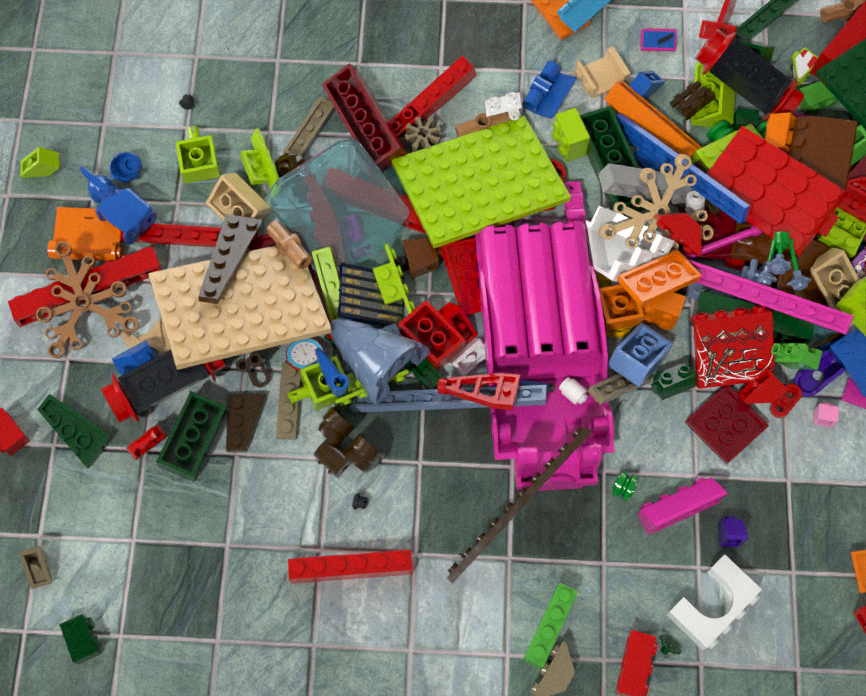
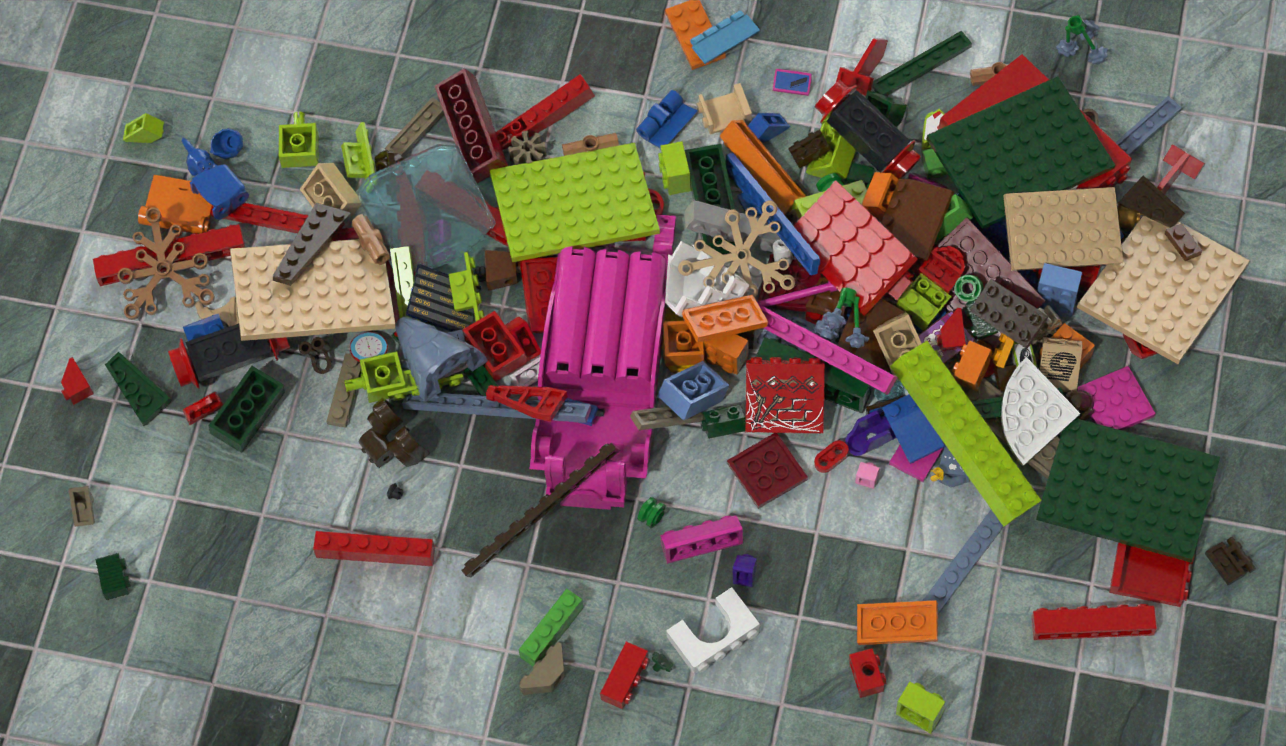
camera: 15 degrees right, 5 degrees down
(187, 102) = (298, 86): black piece -> none
(242, 417) = (297, 400): dark brown wing -> none
(332, 374) = (389, 368): blue piece -> none
(509, 103) = (620, 129): white hinge -> none
(573, 391) = (620, 417): white brick -> none
(683, 230) = (758, 275): red slope -> none
(763, 388) = (809, 440): red slope -> none
(796, 356) = (842, 411): bright green hips -> none

